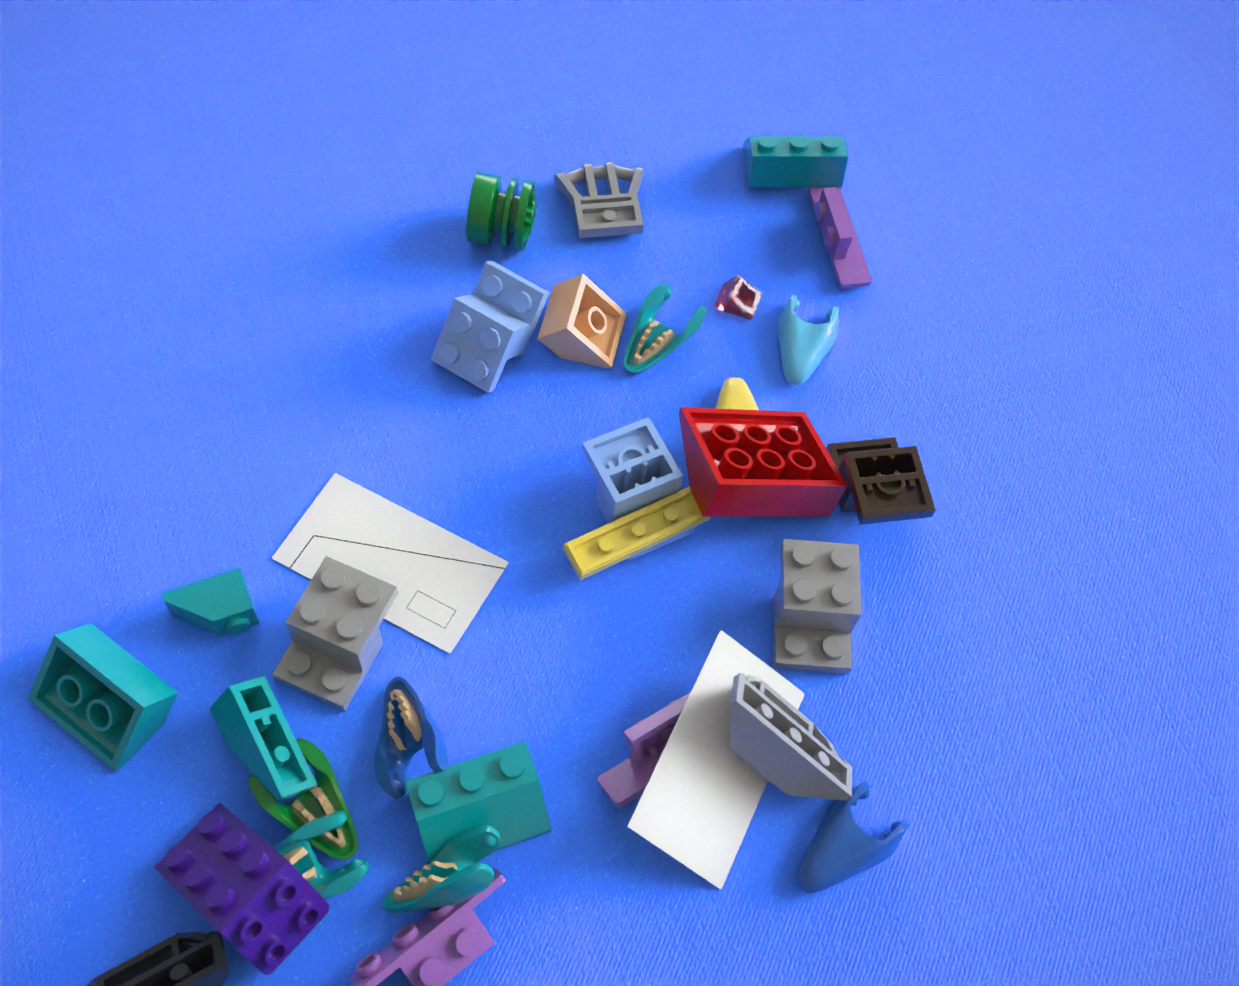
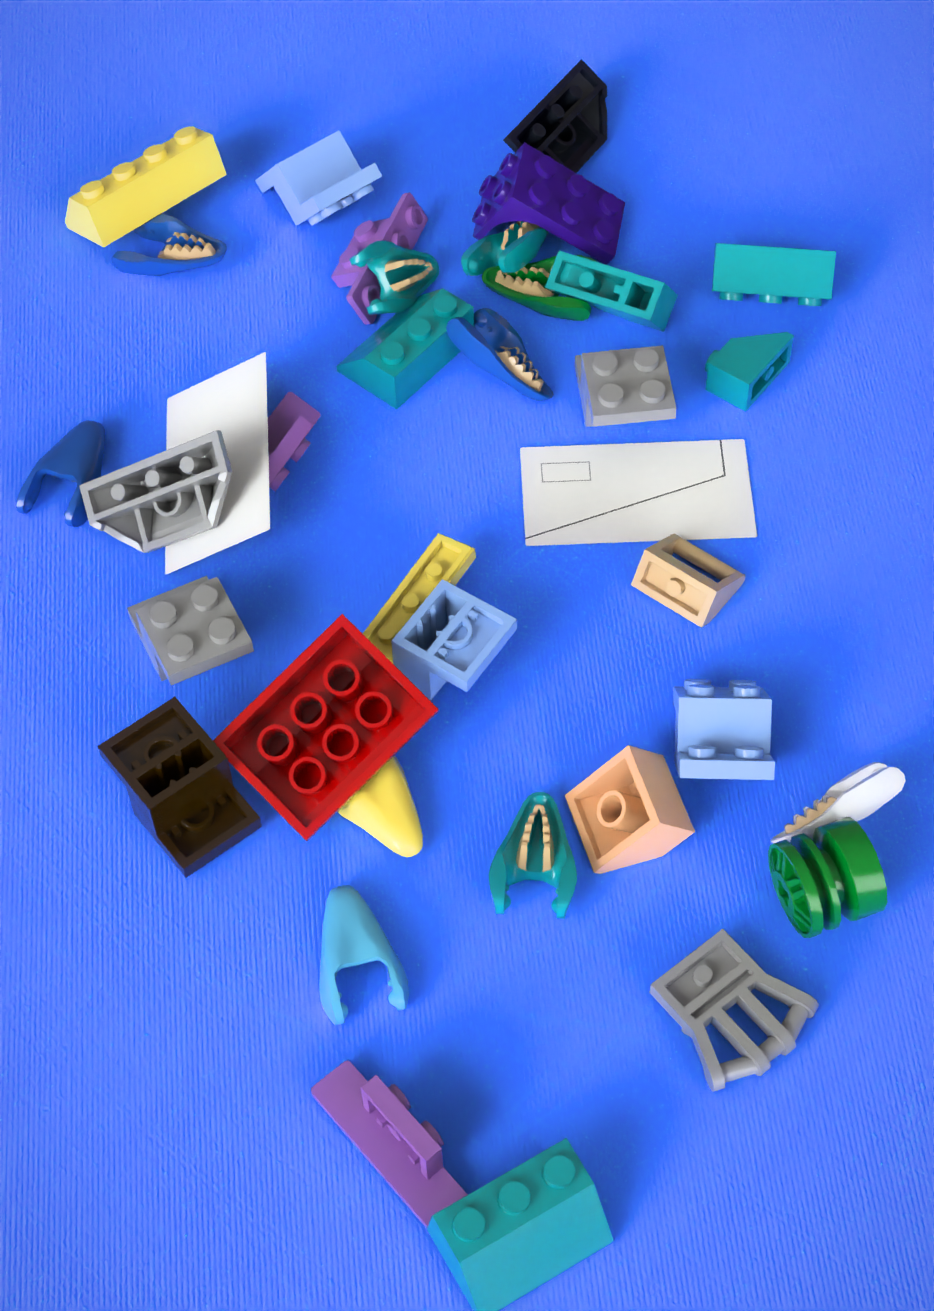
camera: 160 degrees right, 5 degrees down
(438, 469) = (680, 585): none -> tile
(459, 255) = (853, 797): none -> white animal
(738, 298) = (471, 970): slope -> none

